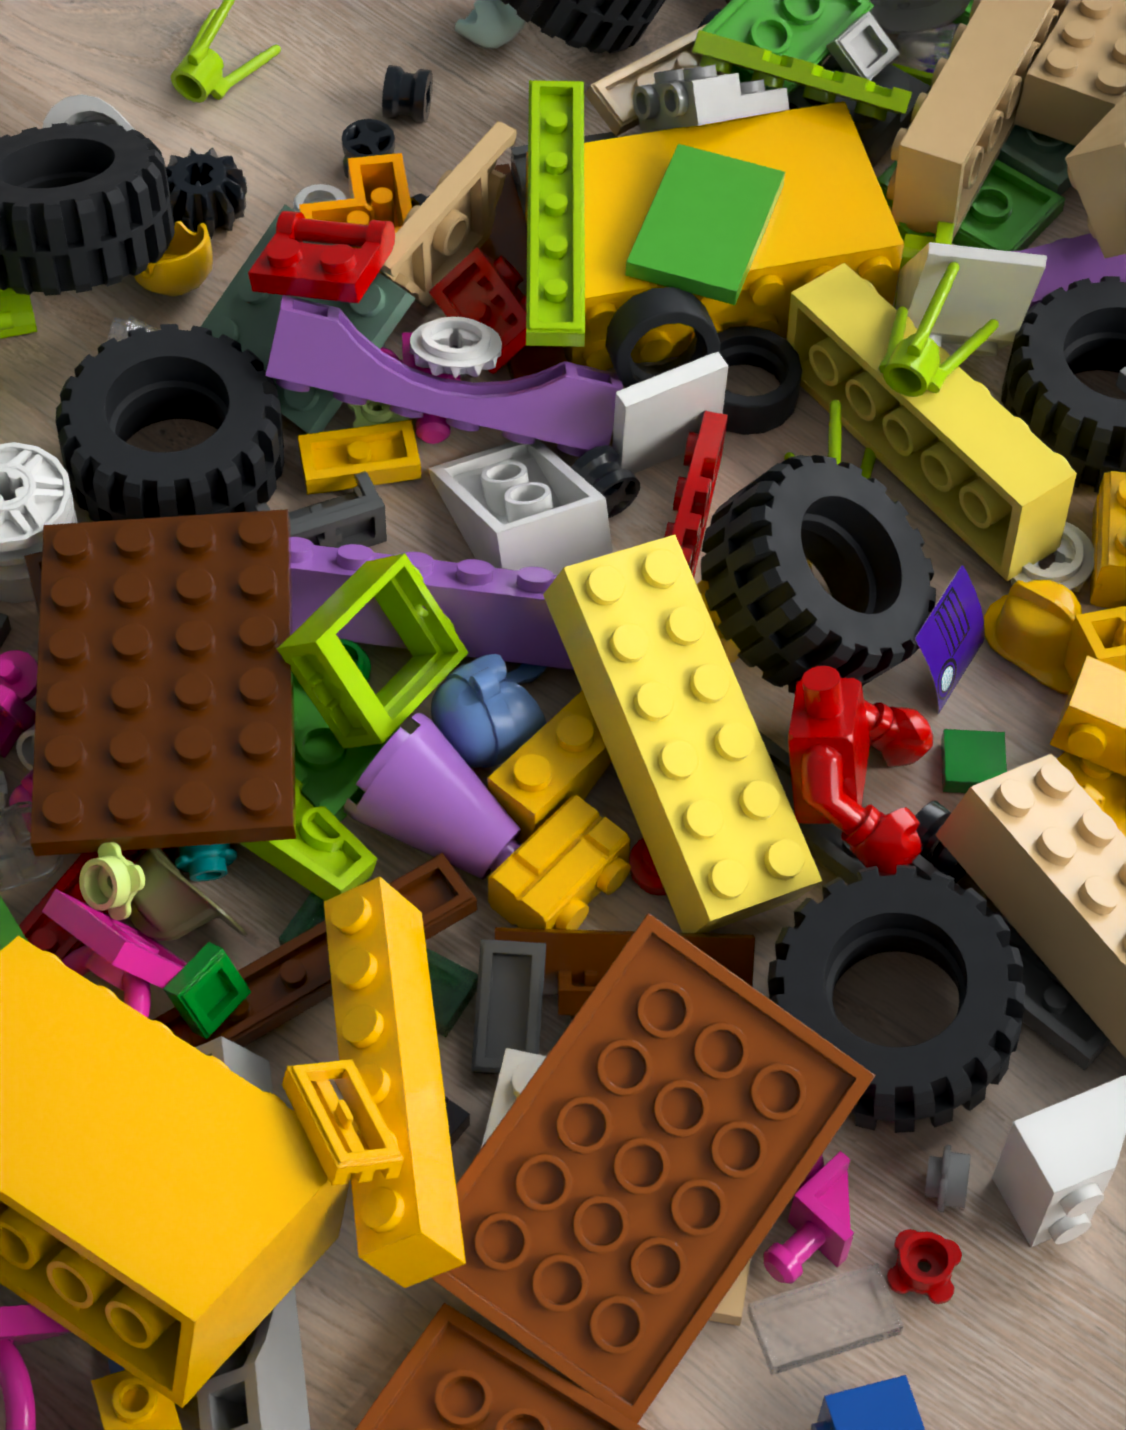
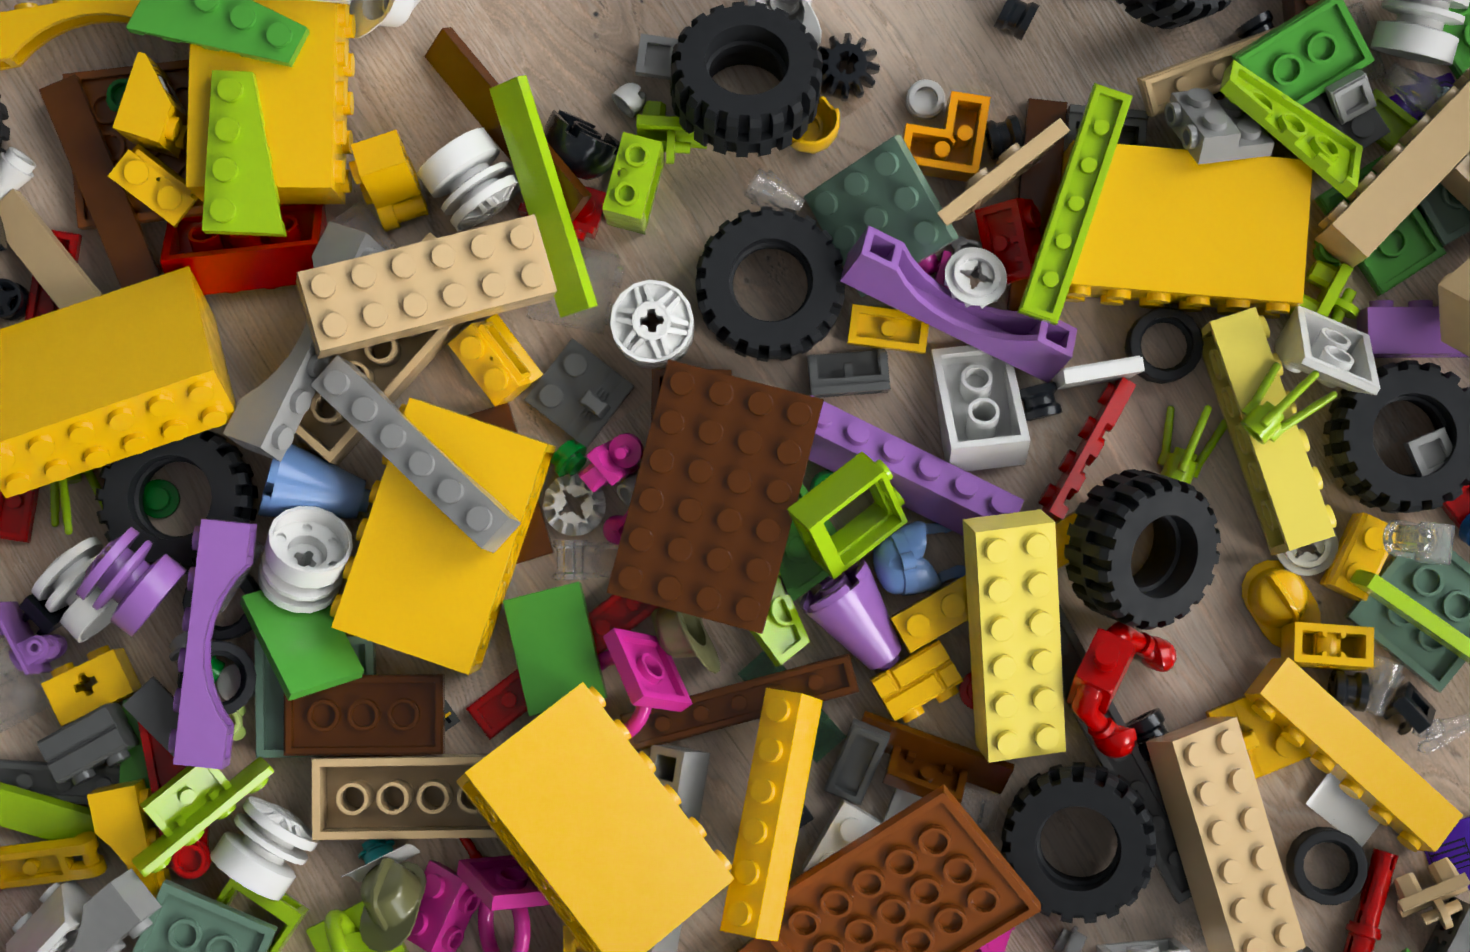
camera: 20 degrees right, 30 degrees up
(111, 881) = (648, 625): yellowish green plate -> none
(207, 990) = (685, 711): green tile -> none
(322, 270) = (895, 215): red plate -> none
(329, 1121) = (717, 862): yellow tile -> none
(365, 139) = (973, 53): black wheel -> none
(648, 312) = (1111, 325): black tyre -> none
(705, 224) = (1173, 249): bright green tile -> none
(952, 635) = (1214, 599): dark purple sticker -> none
(971, 758) = (1195, 679): green tile -> none

